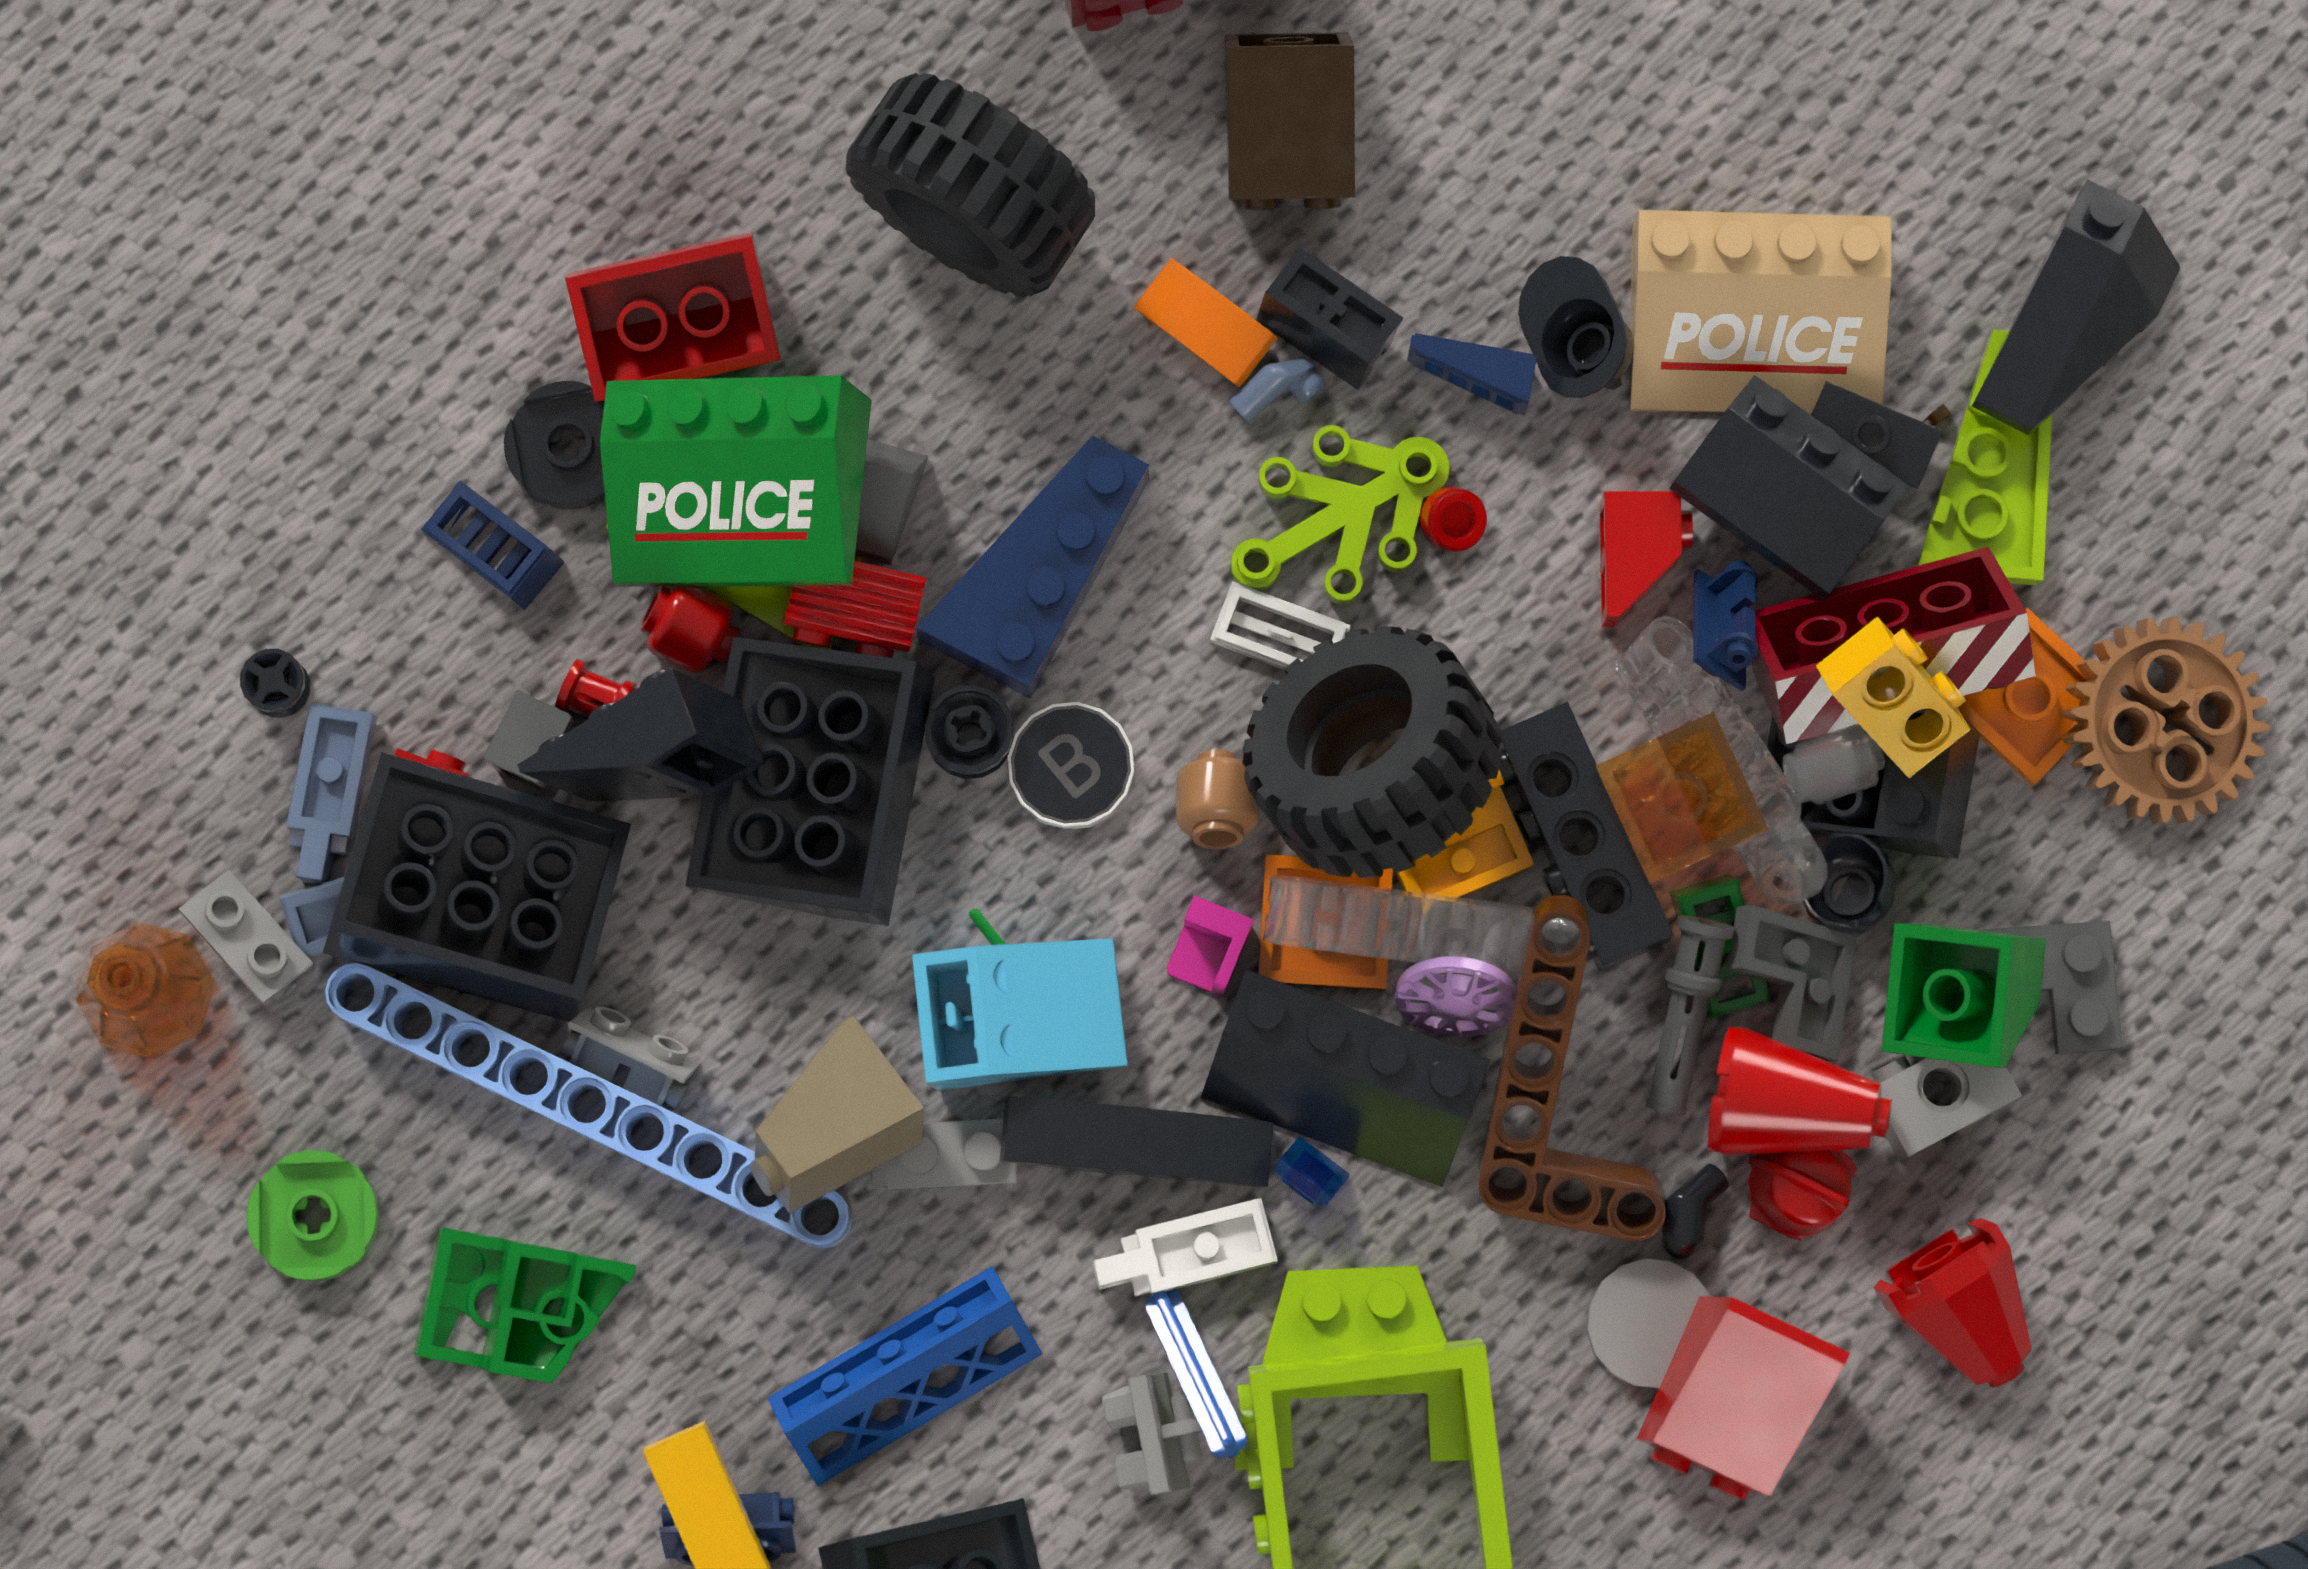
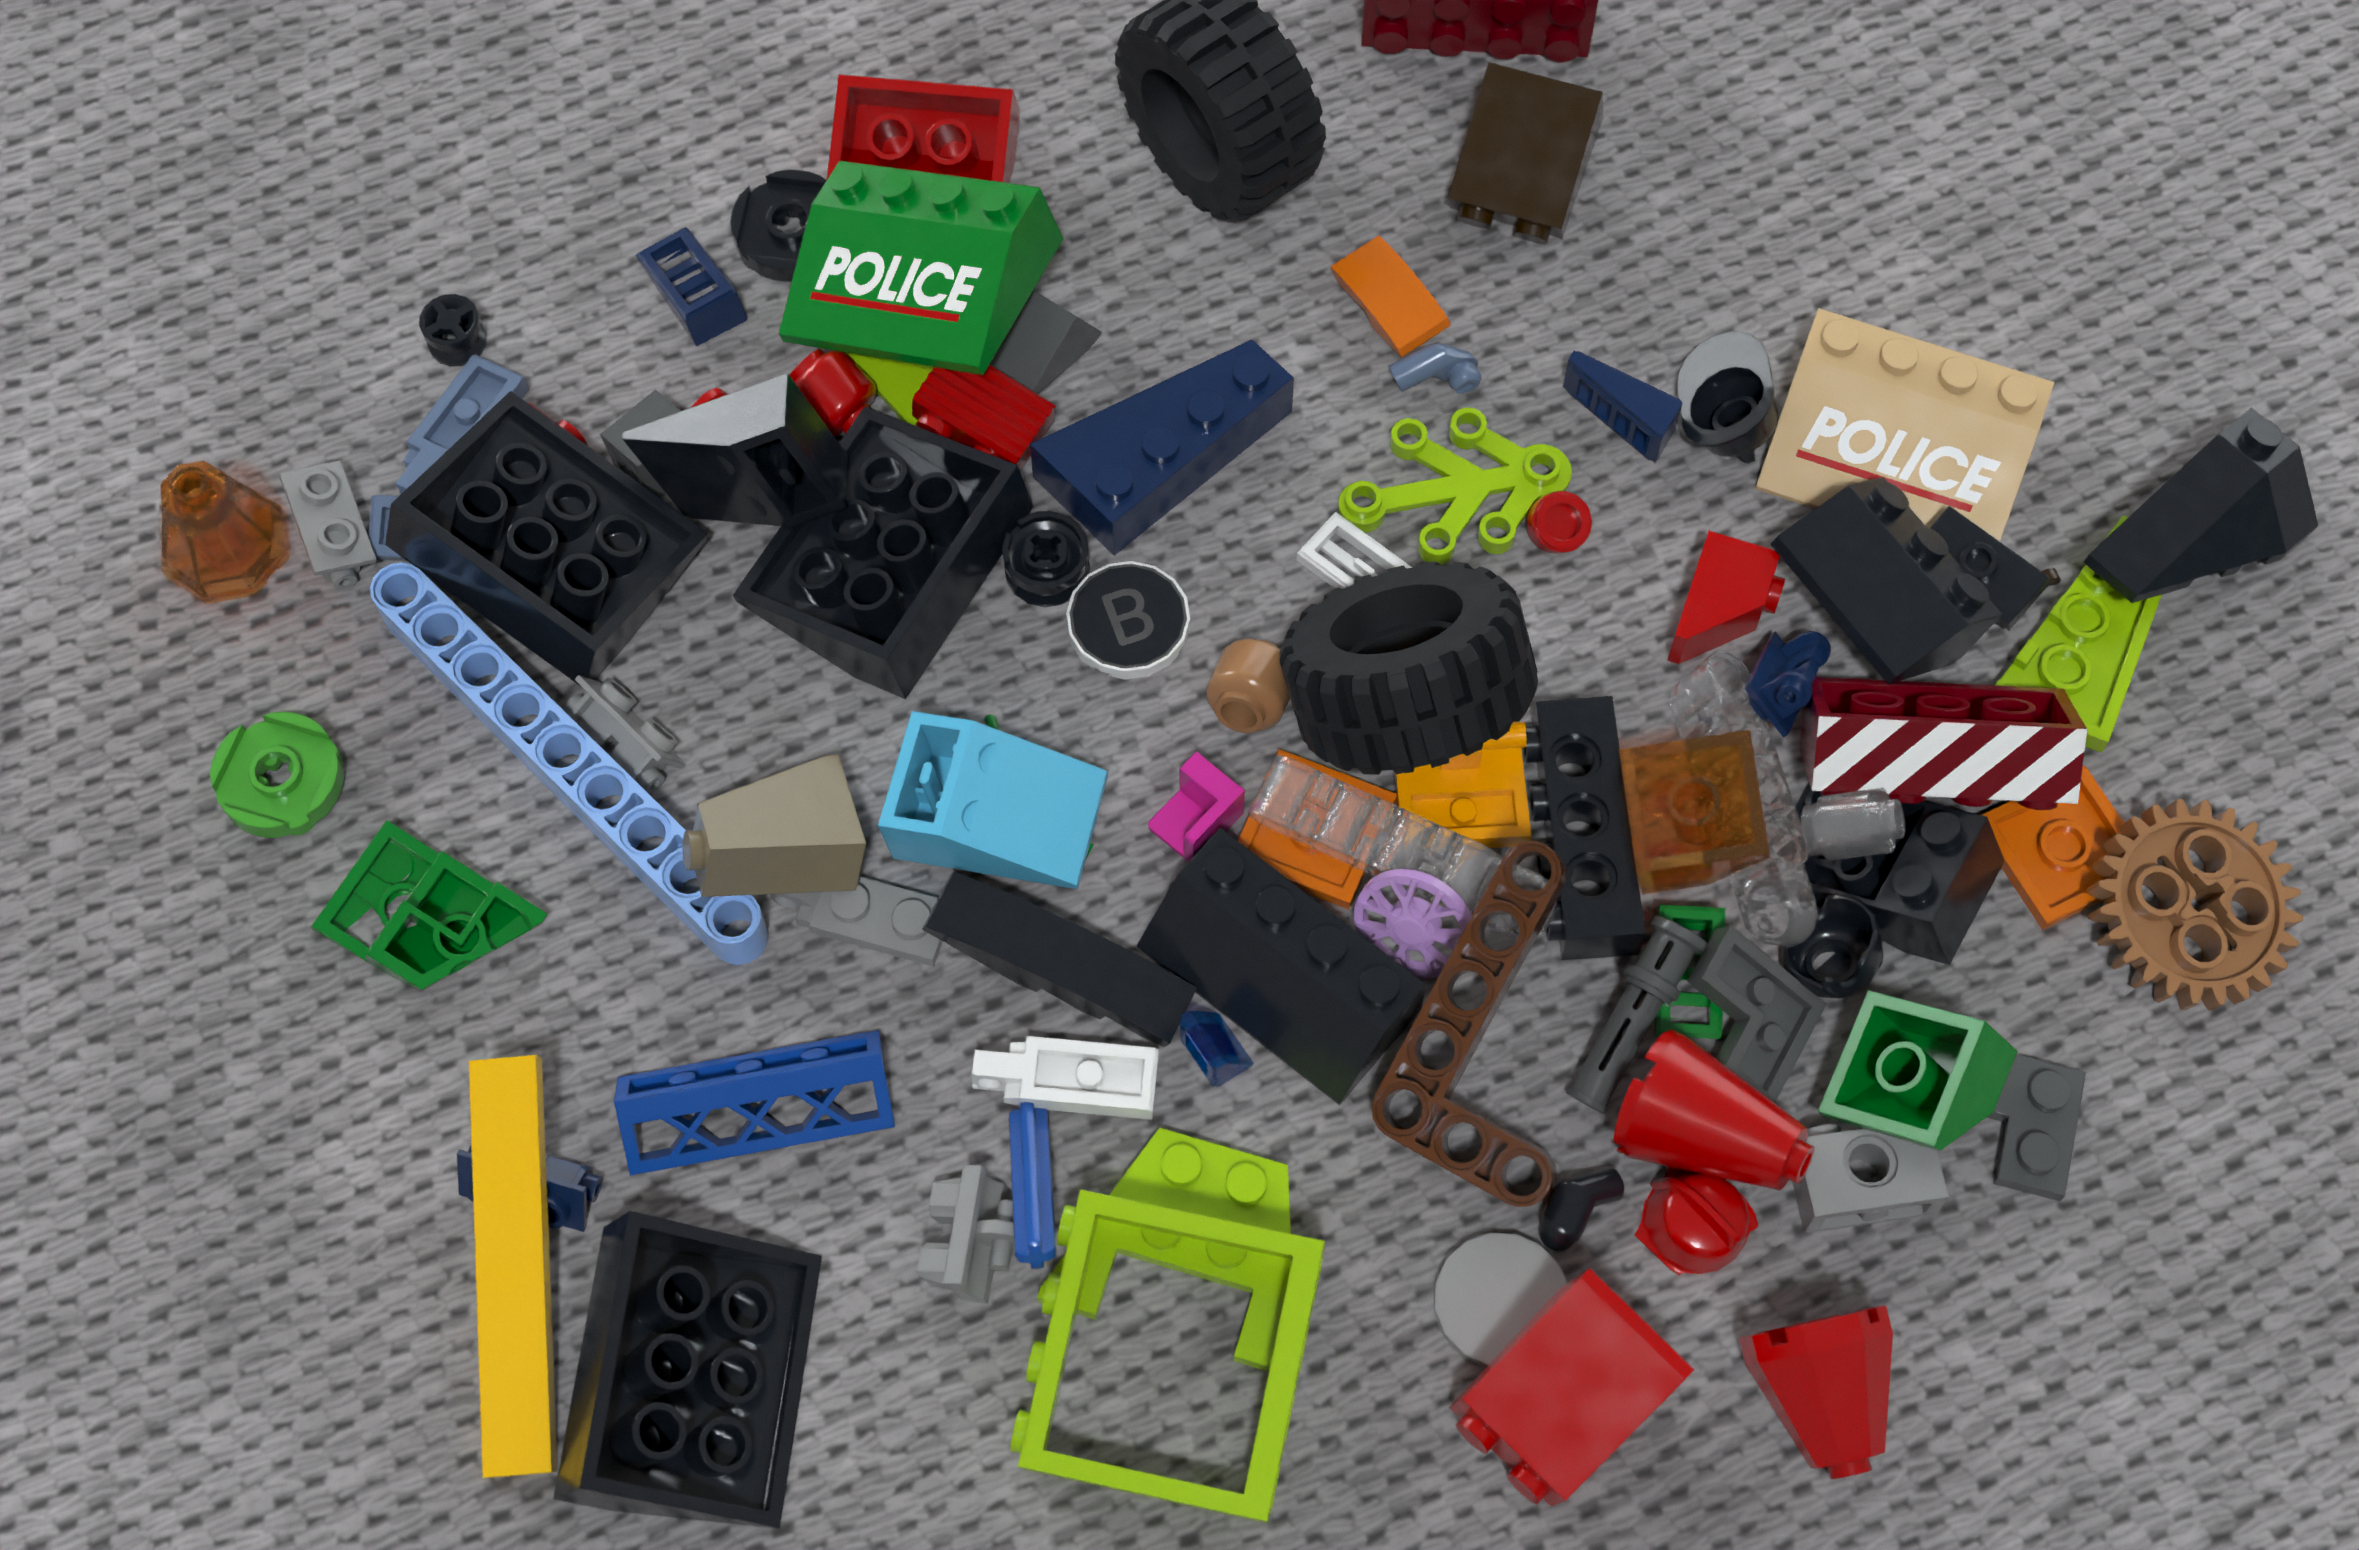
camera: 20 degrees right, 15 degrees down
(1328, 318) = (1502, 323): black hinge -> none
(1888, 701) = (1922, 767): yellow brick -> none

